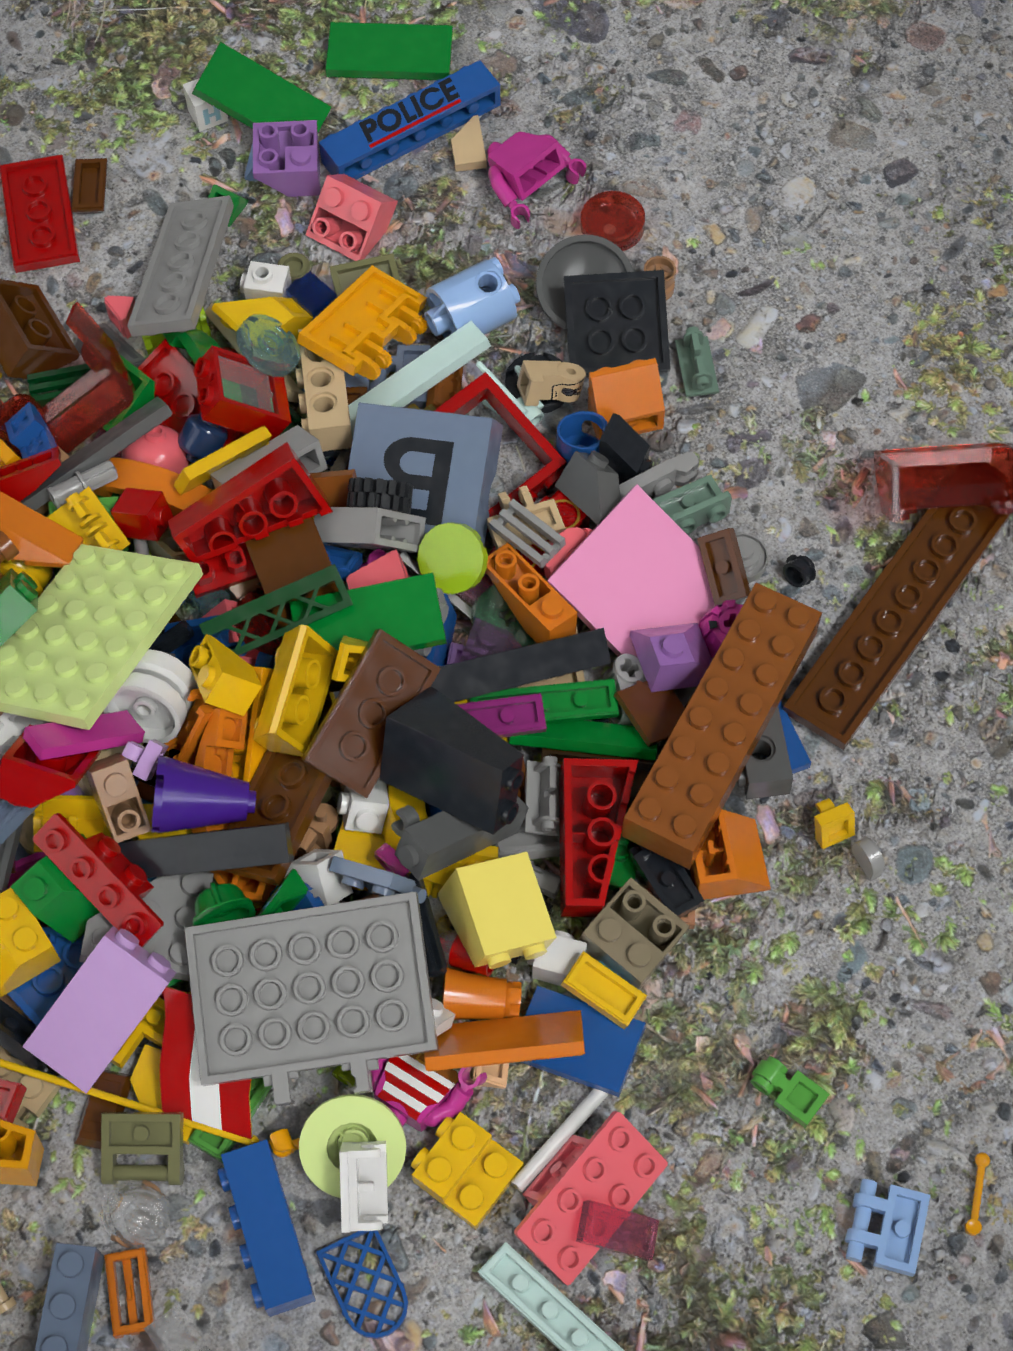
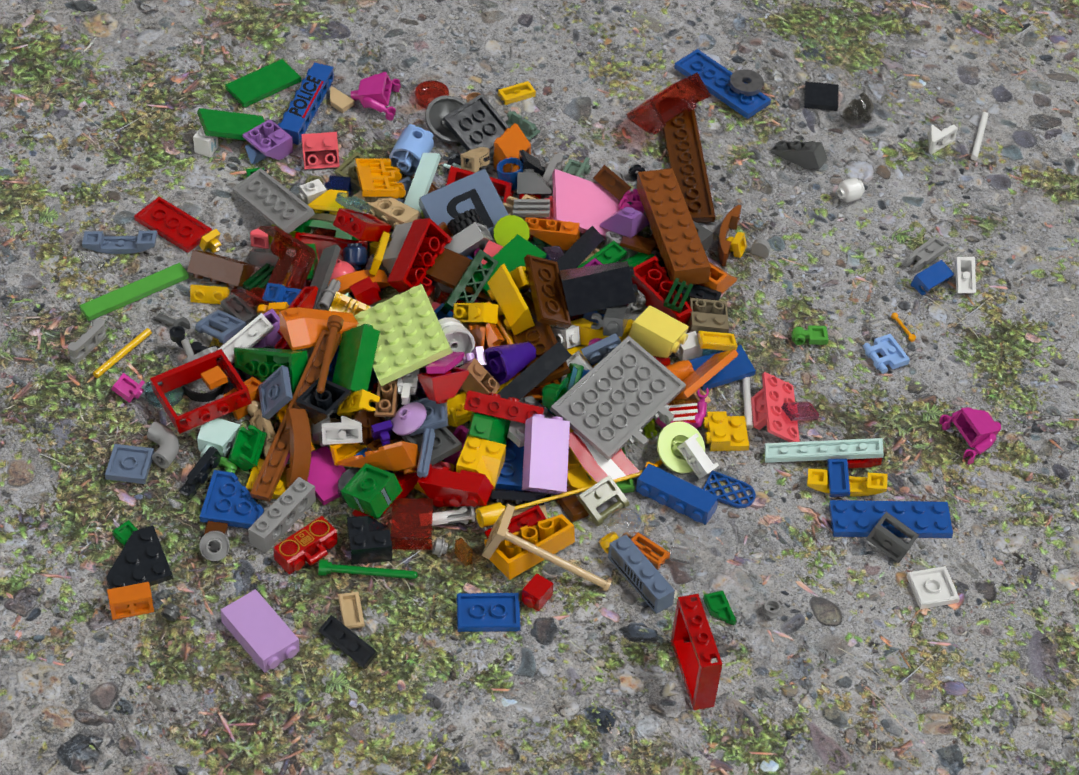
camera: 45 degrees left, 15 degrees down
(52, 274) = (211, 241): none -> yellow tile
(83, 1229) = (606, 540): none -> yellow tile
(89, 185) = (185, 201): reddish brown tile -> none
(627, 848) = (682, 285): none -> dark green tile
(751, 303) = (517, 93): none -> yellow tile
(869, 767) = (730, 221): none -> dark orange slope

